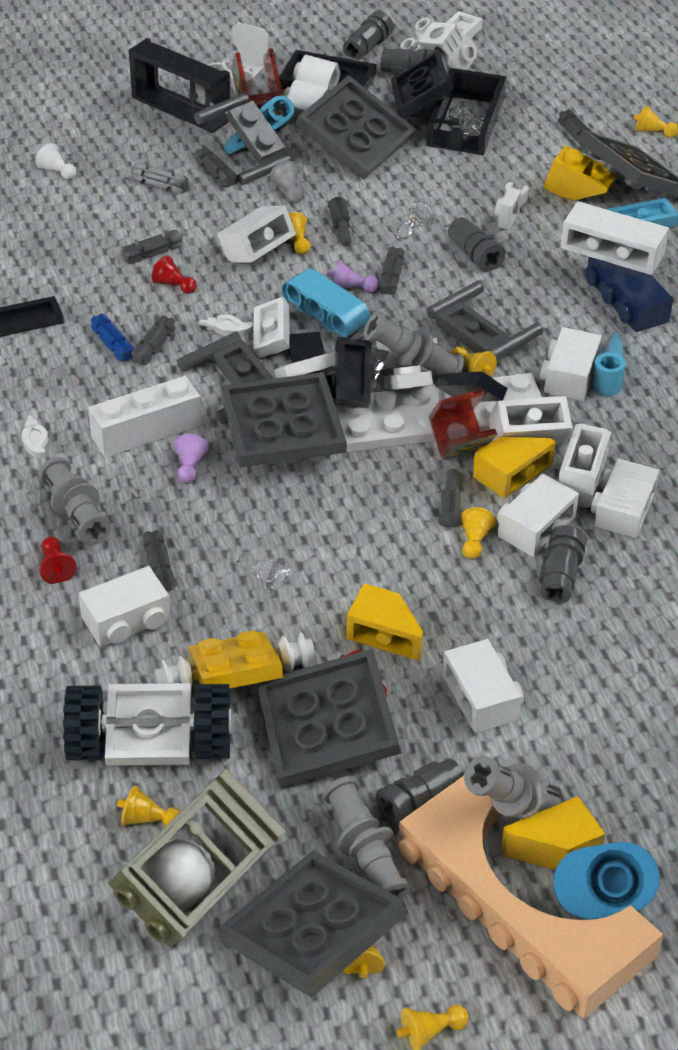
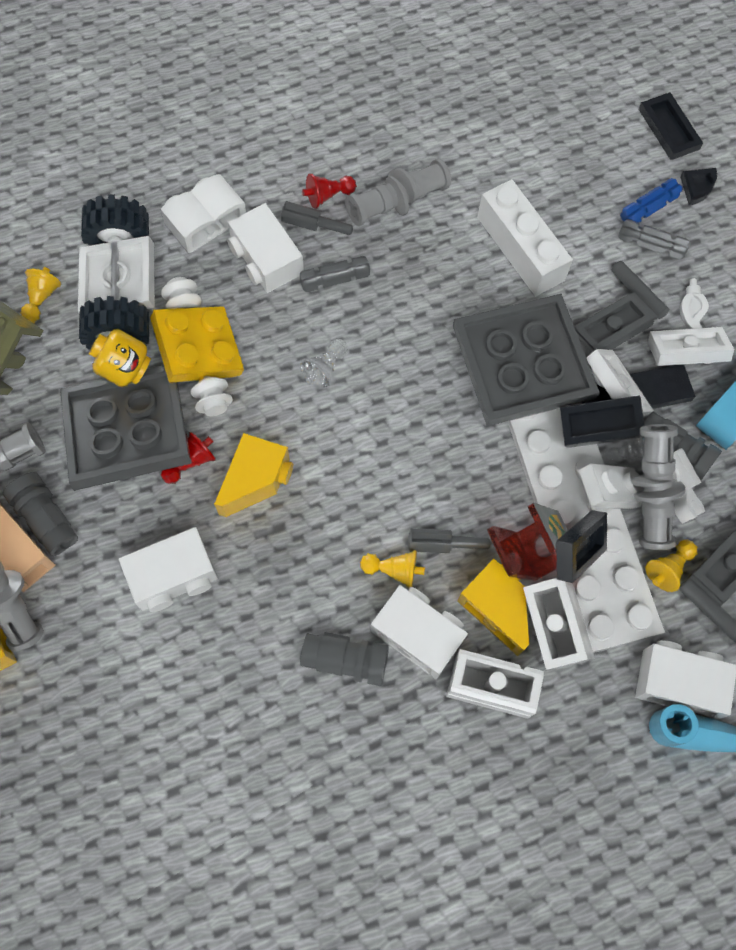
camera: 85 degrees right, 25 degrees up
(34, 437) = (494, 155): white piece -> none
(68, 656) = (202, 212): none -> white brick
(87, 575) = (311, 219): none -> dark grey axle
(94, 306) = (698, 184): none -> black tile
(190, 451) = (483, 286): lavender piece -> none
(260, 702) = (119, 358): none -> yellow head
(625, 497) = (457, 735): white brick -> none

